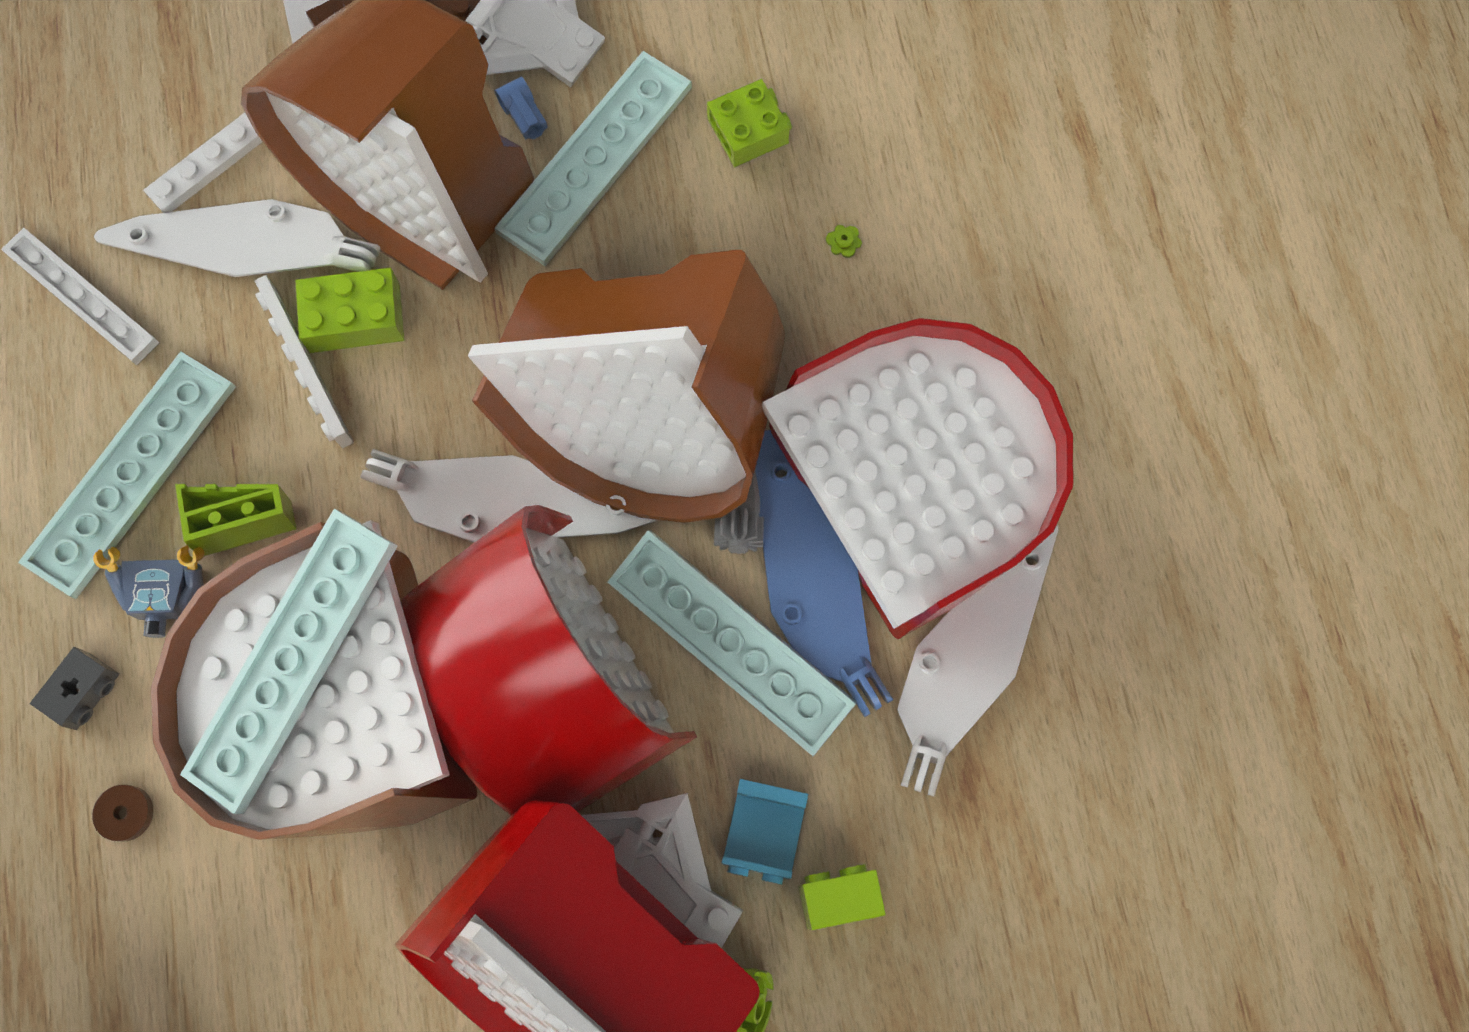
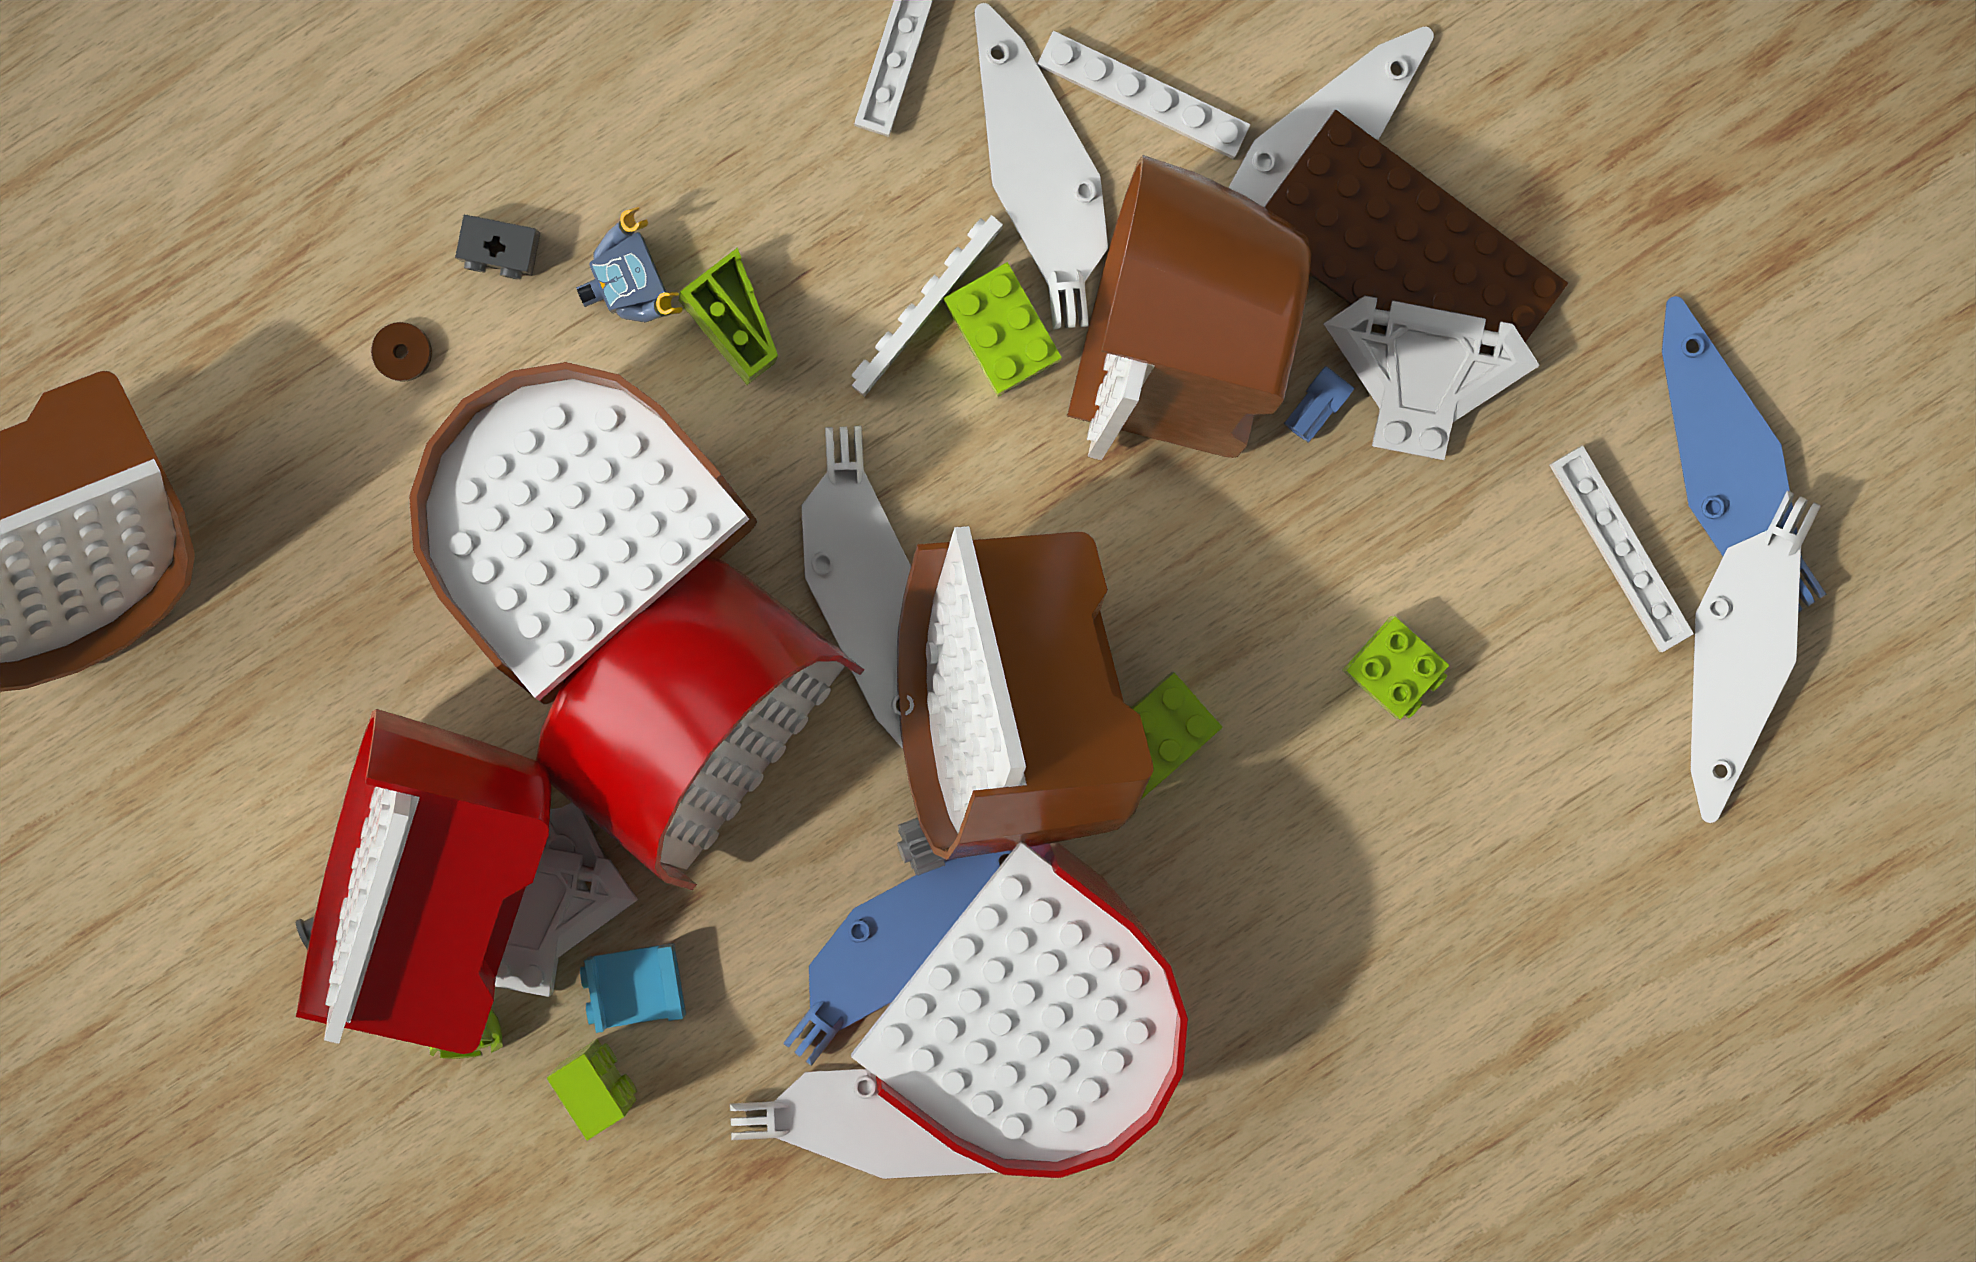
camera: 65 degrees right, 15 degrees up
(127, 474) = (735, 182): light aqua plate -> none
(288, 661) = (585, 501): light aqua plate -> none
(593, 158) = (1291, 512): light aqua plate -> none
(732, 642) = (805, 881): light aqua plate -> none
(845, 247) = (1294, 832): lime plant -> none

